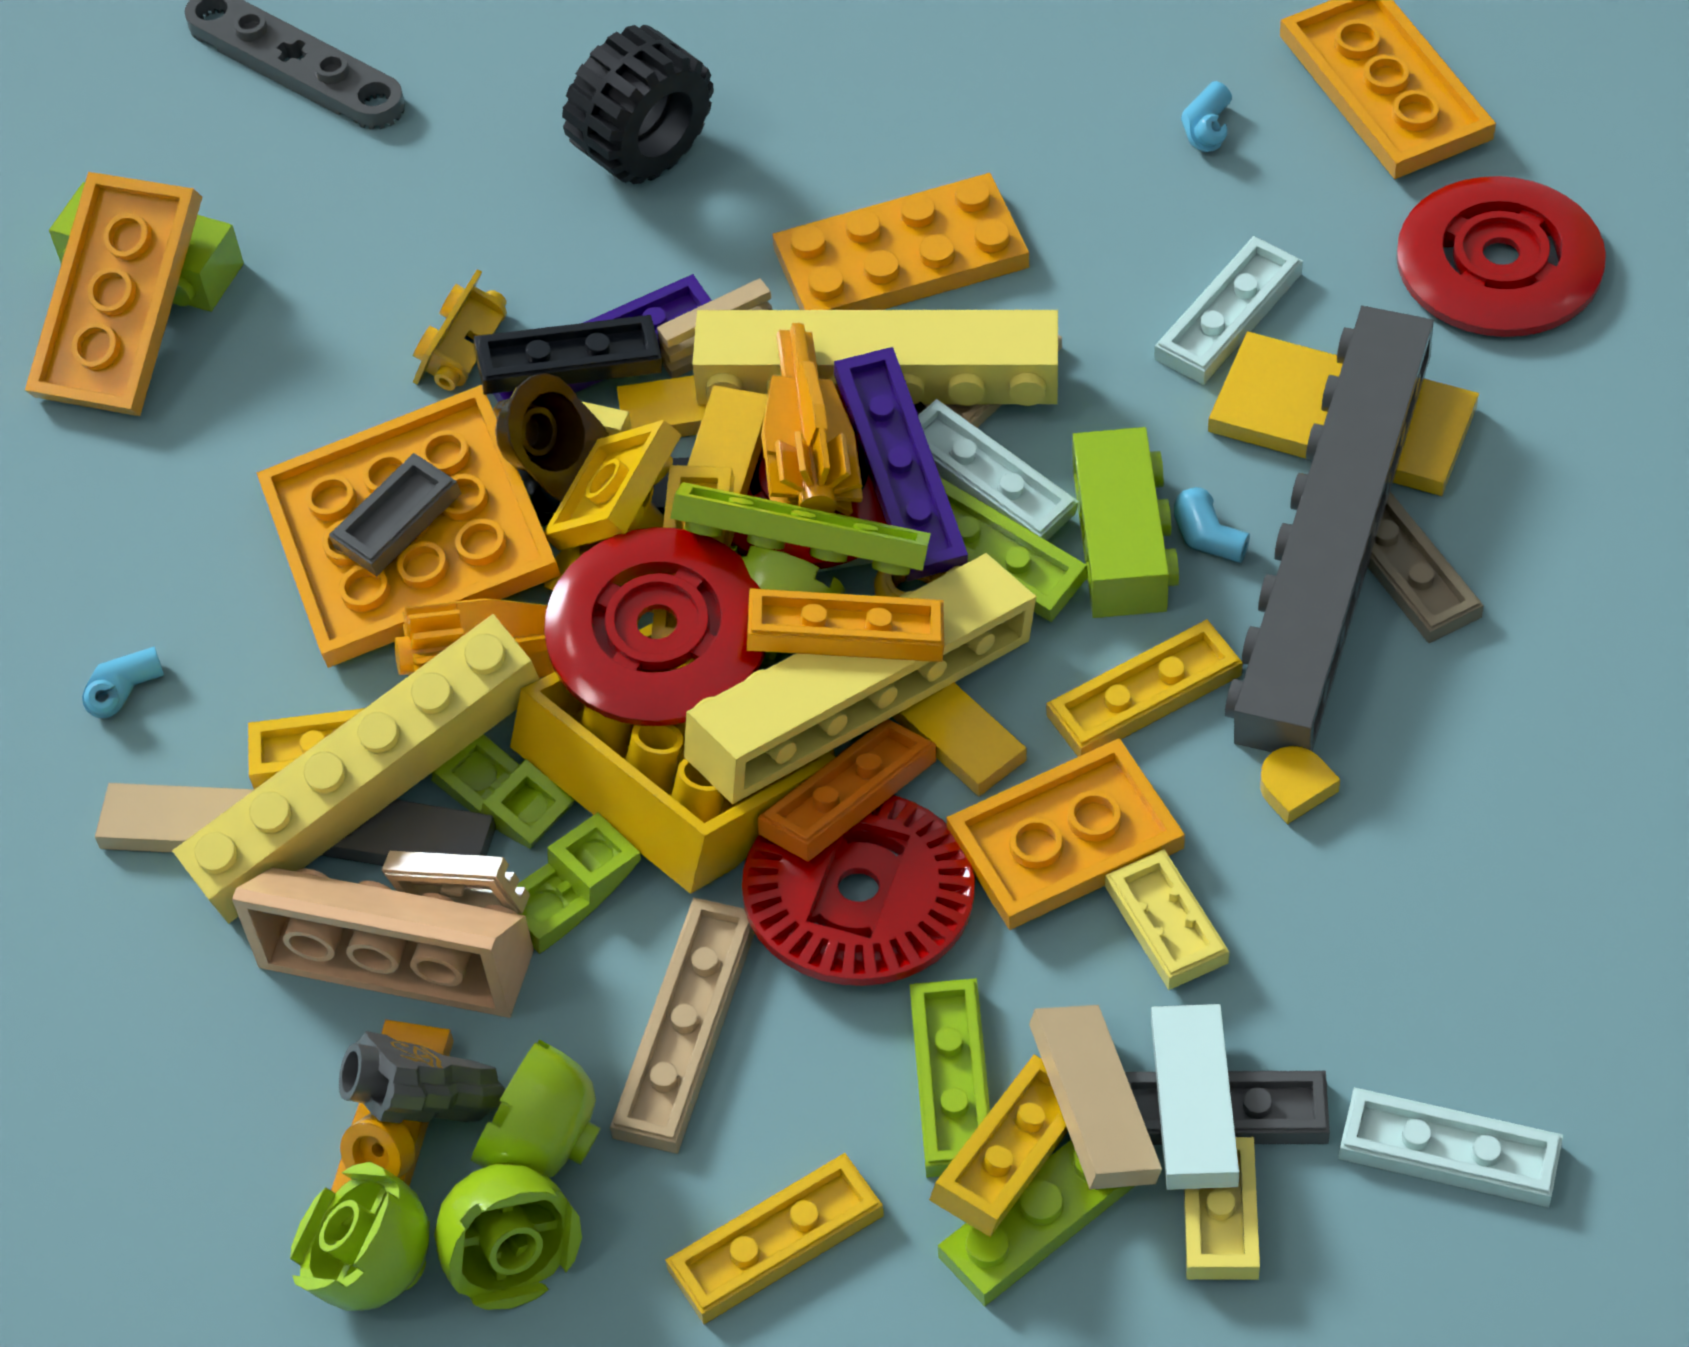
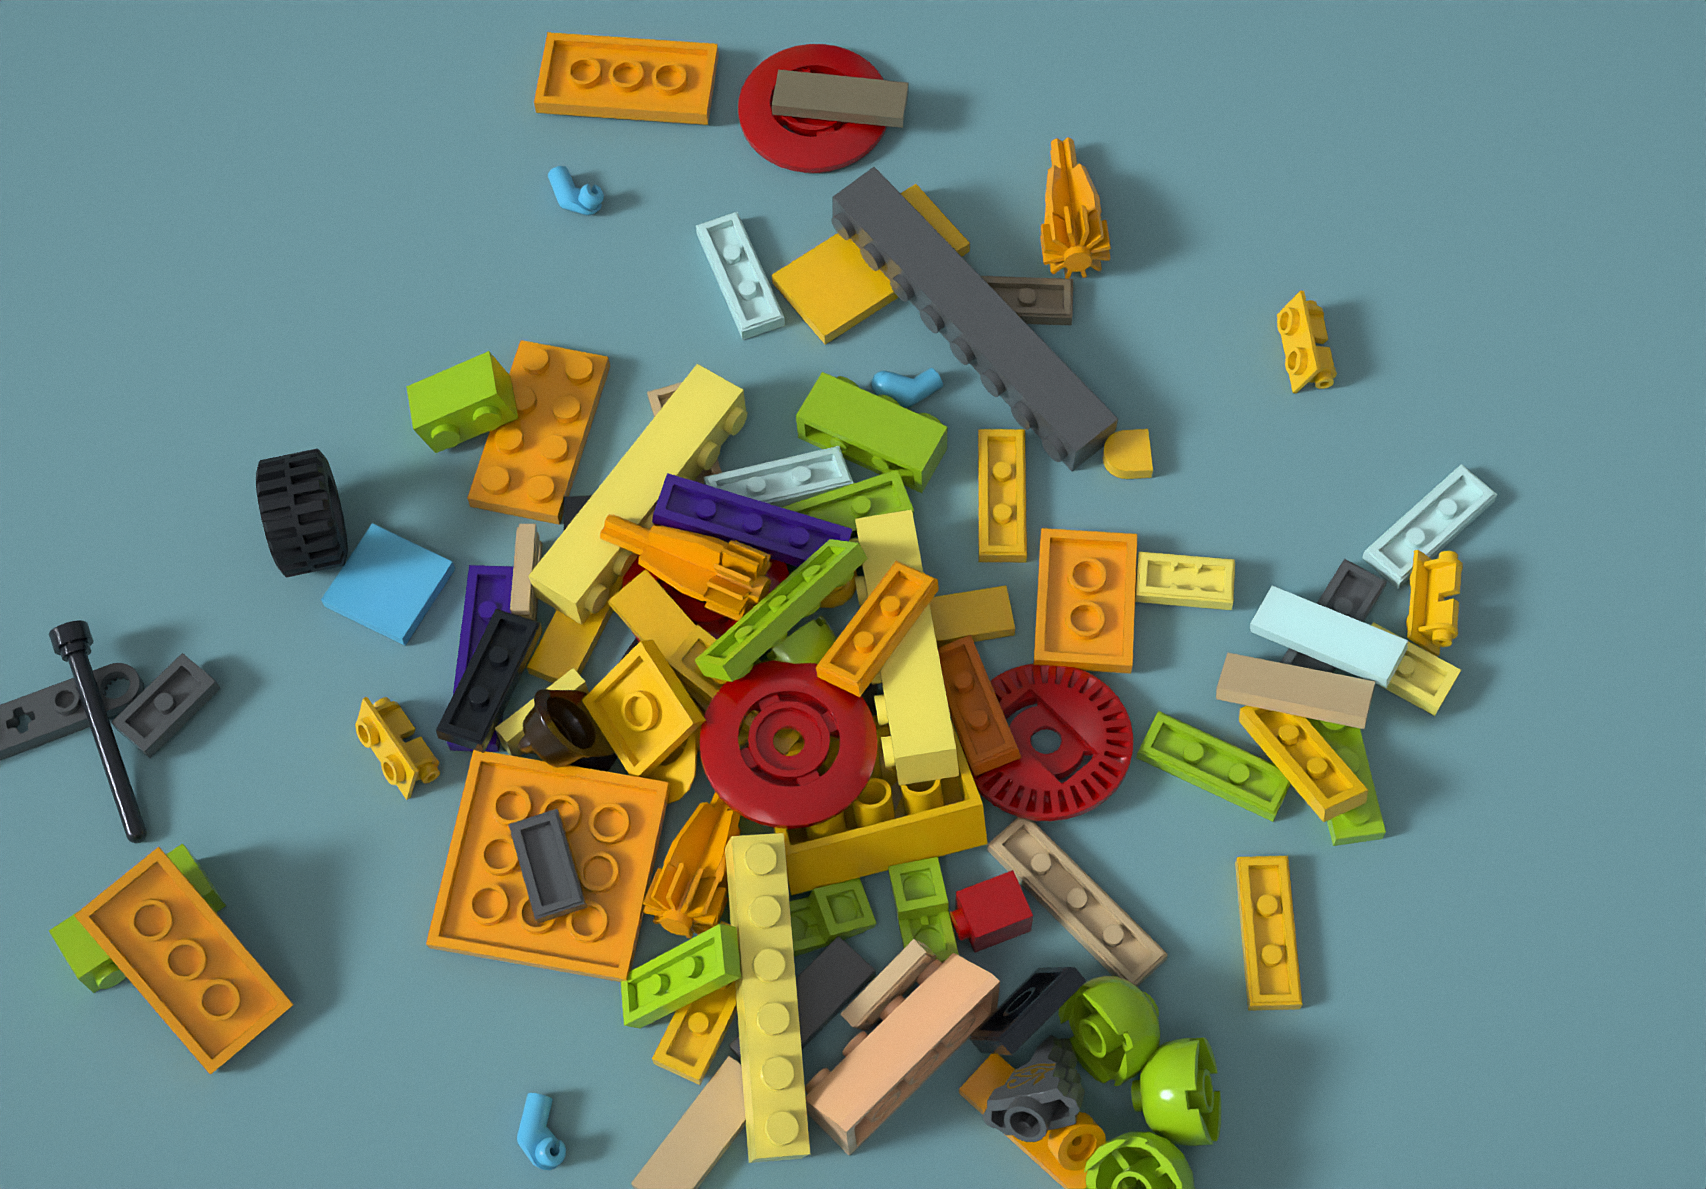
camera: 60 degrees left, 10 degrees up
(339, 683) = (681, 976): none -> lime plate
(379, 142) = (166, 705): none -> dark grey plate
(385, 32) = (73, 643): none -> black piece
(499, 1018) = (1026, 1010): none -> black tile
(611, 940) = (991, 912): none -> red brick
(633, 232) = (388, 584): none -> medium azure tile
(868, 160) = (462, 402): none -> lime brick
(1334, 1189) = (1432, 620): none -> yellow hinge
(1520, 261) = (840, 98): none -> dark tan tile
(1560, 551) = (1072, 225): none -> light orange piece
(1574, 896) = (1301, 327): none -> yellow hinge

